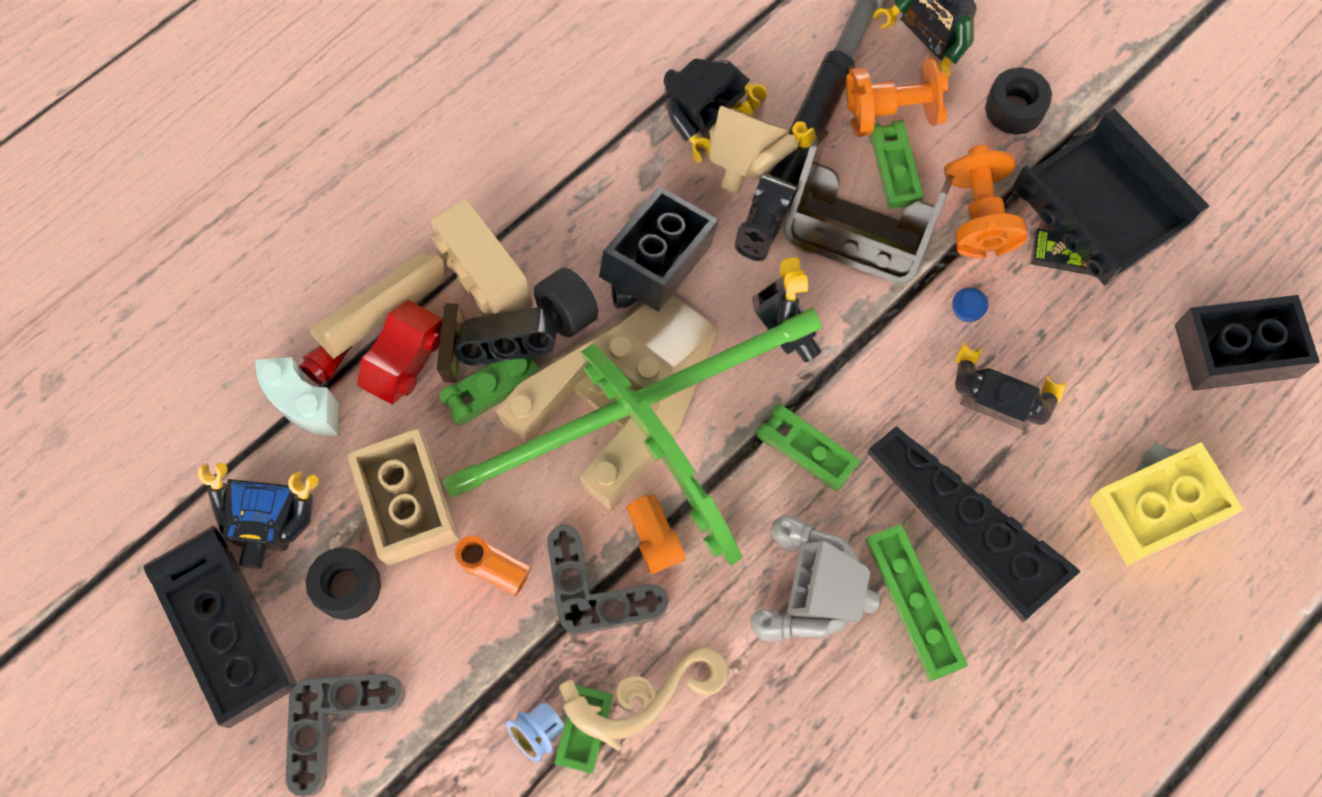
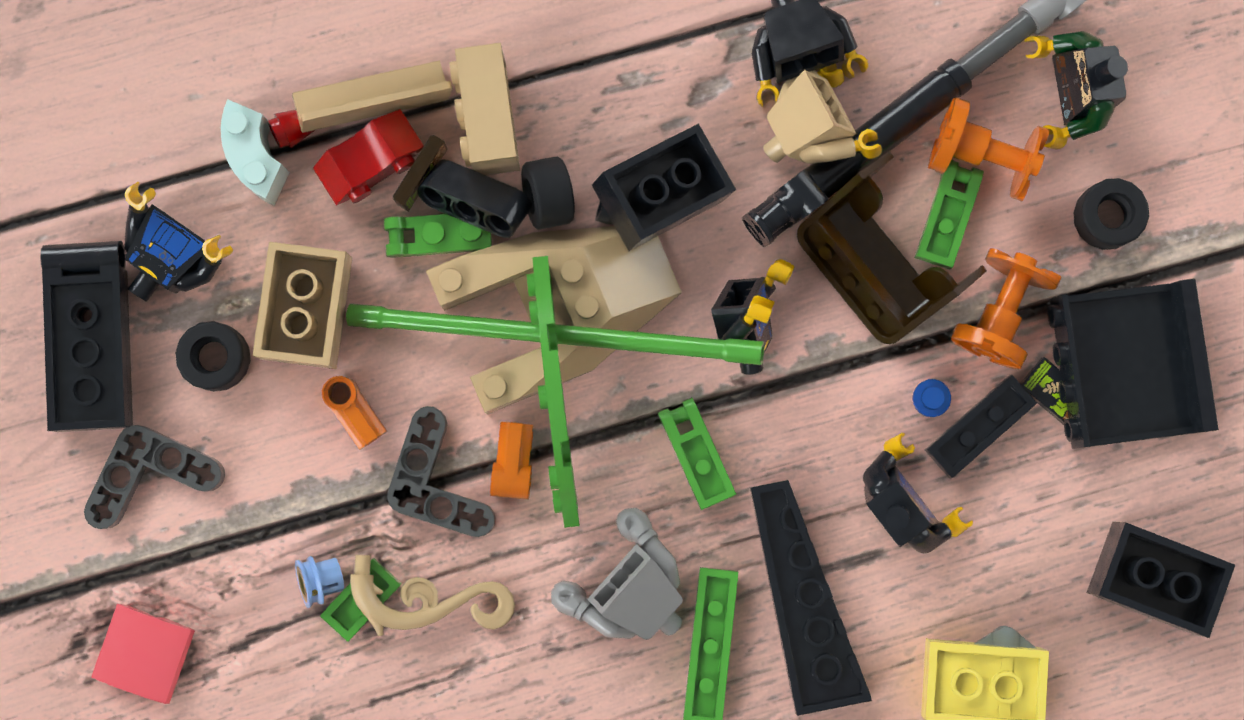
camera: 20 degrees right, 15 degrees up
(1023, 305) = (980, 426): none -> black plate

